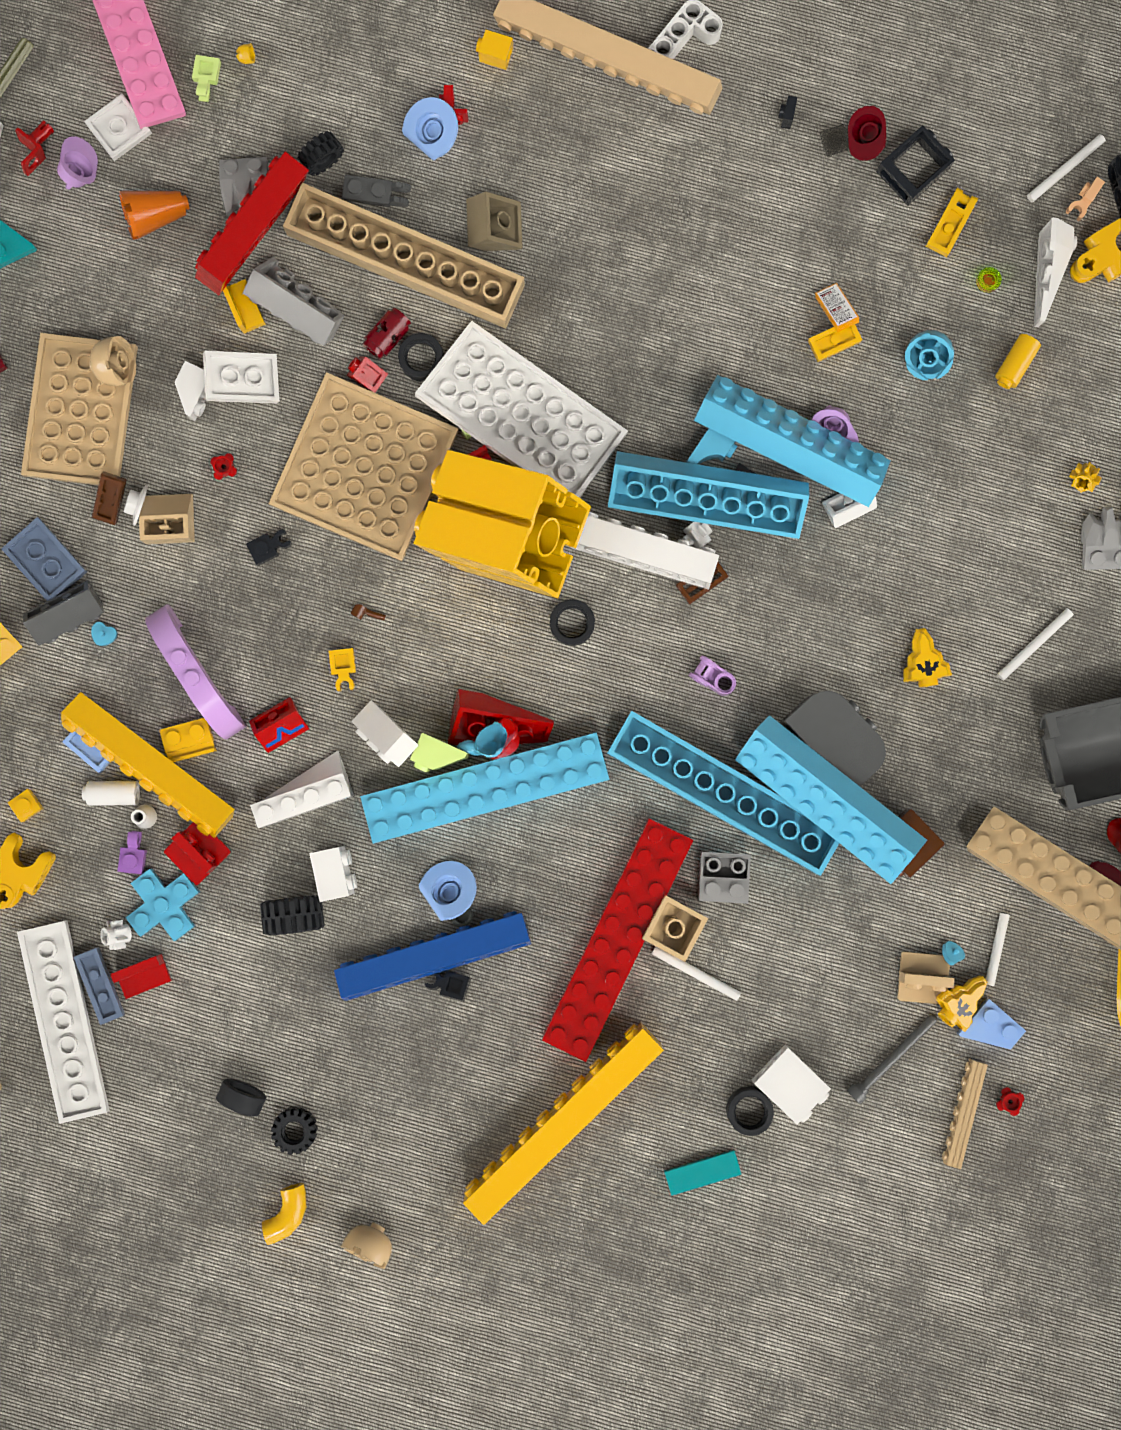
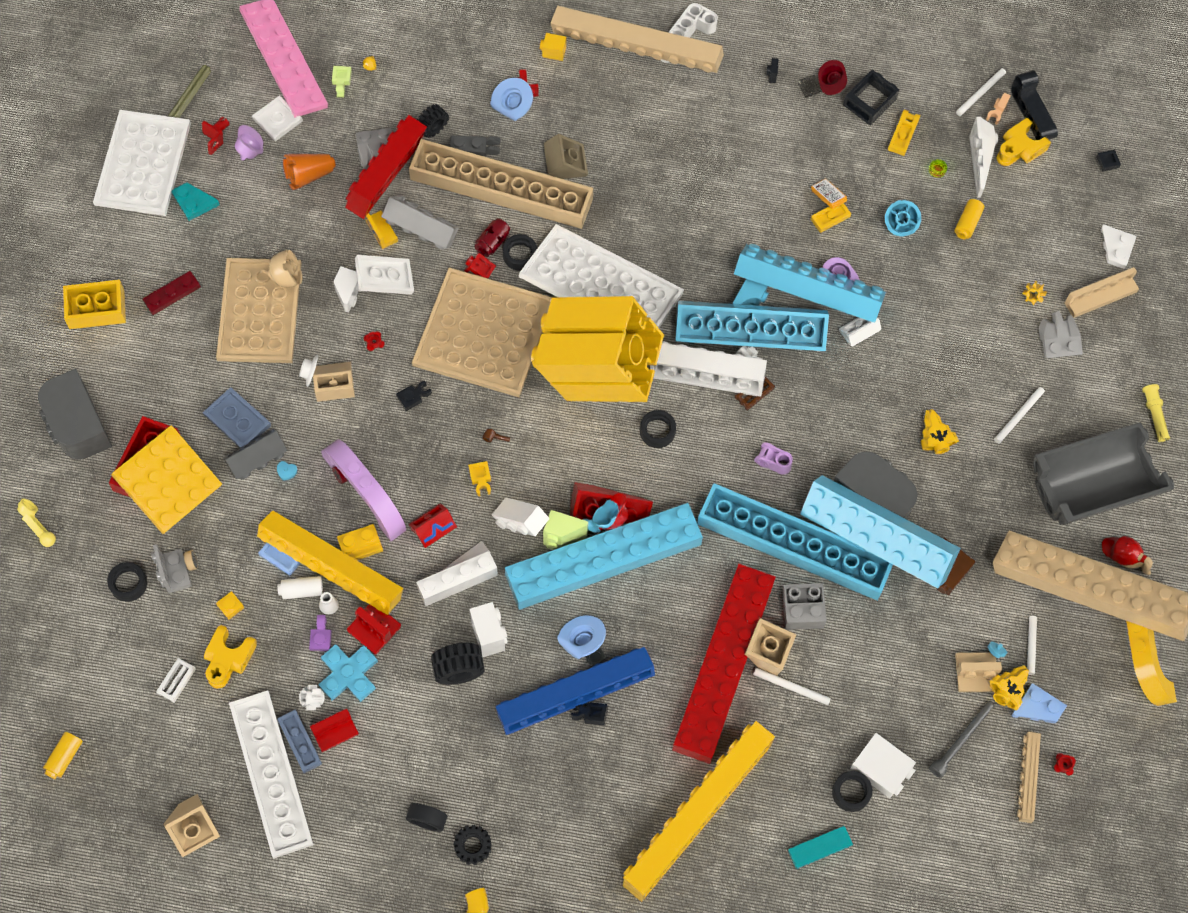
camera: 10 degrees left, 20 degrees down
(109, 498) = (286, 369): reddish brown plate -> none

